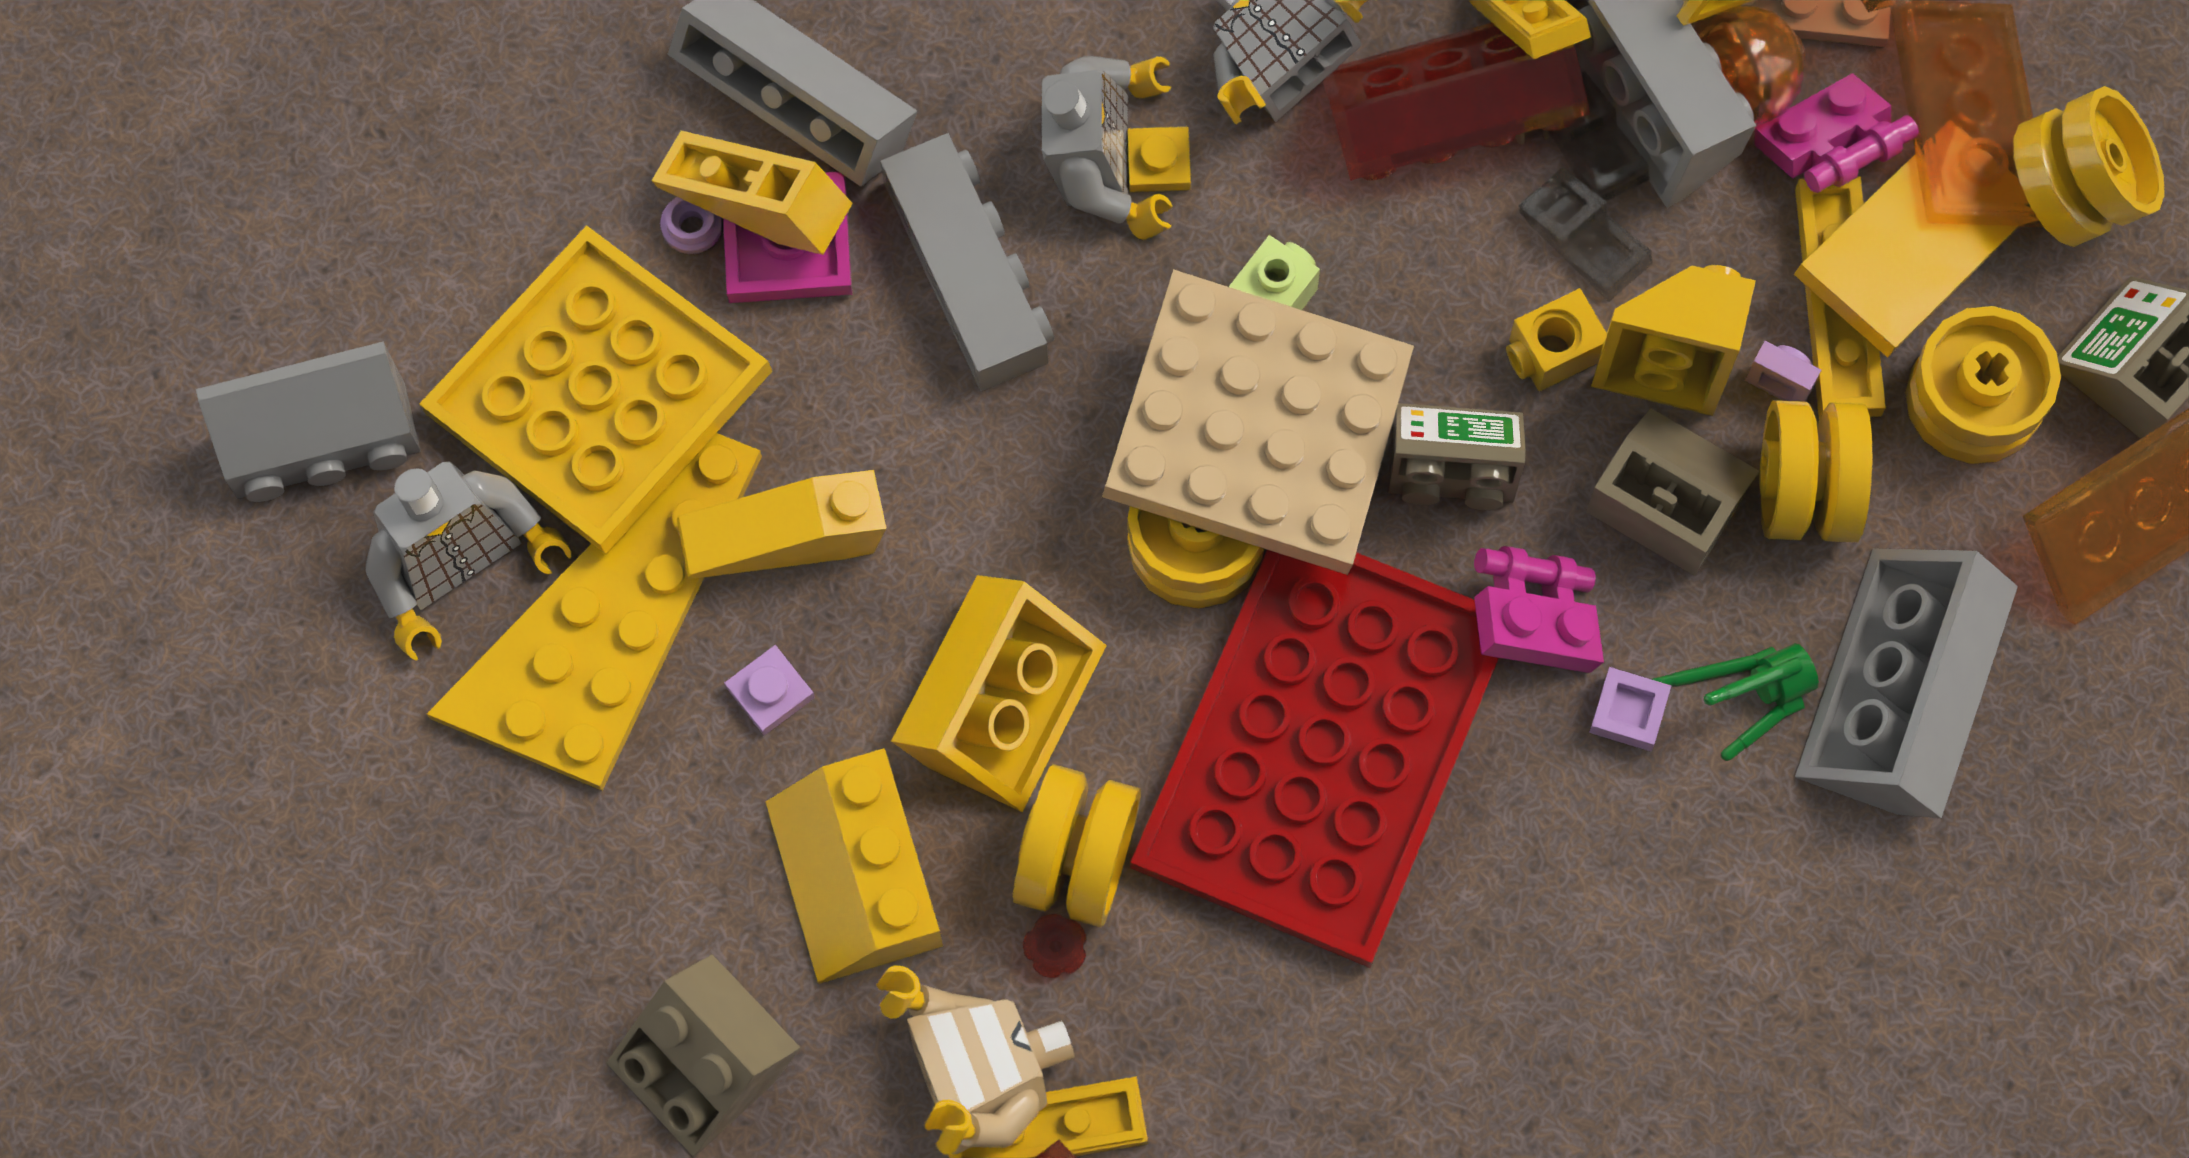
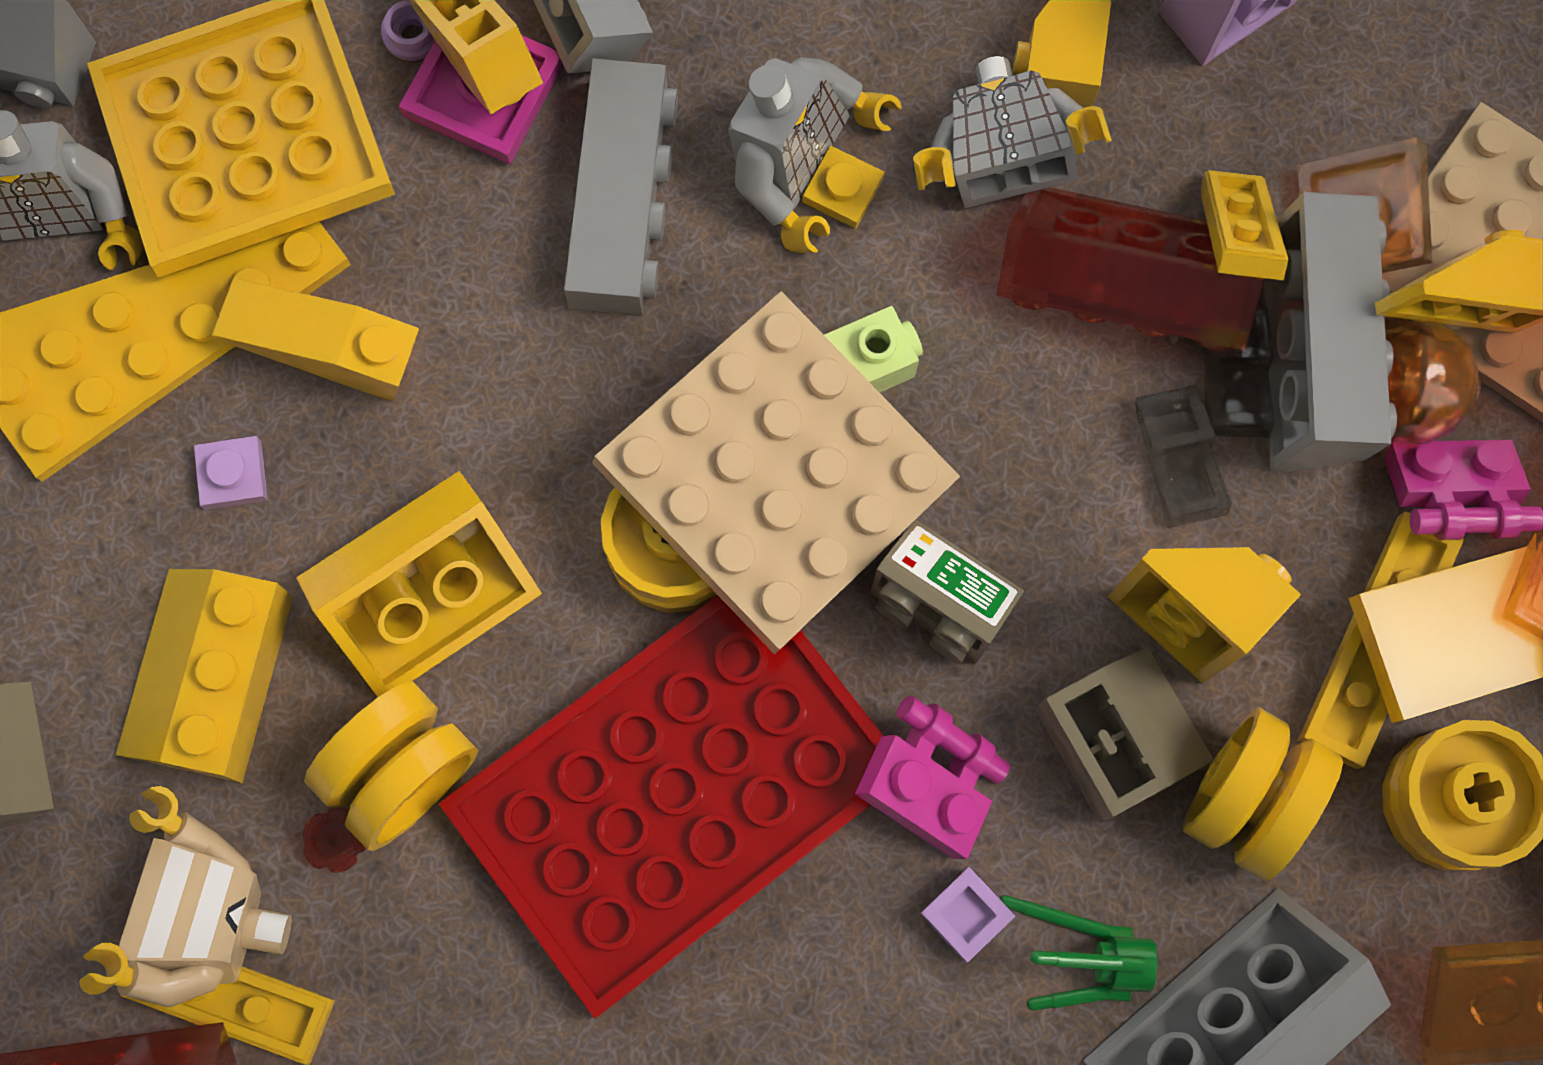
camera: 25 degrees right, 5 degrees up
(1566, 318) = (1119, 524): yellow brick -> none
(1783, 372) = (1288, 683): lavender plate -> none

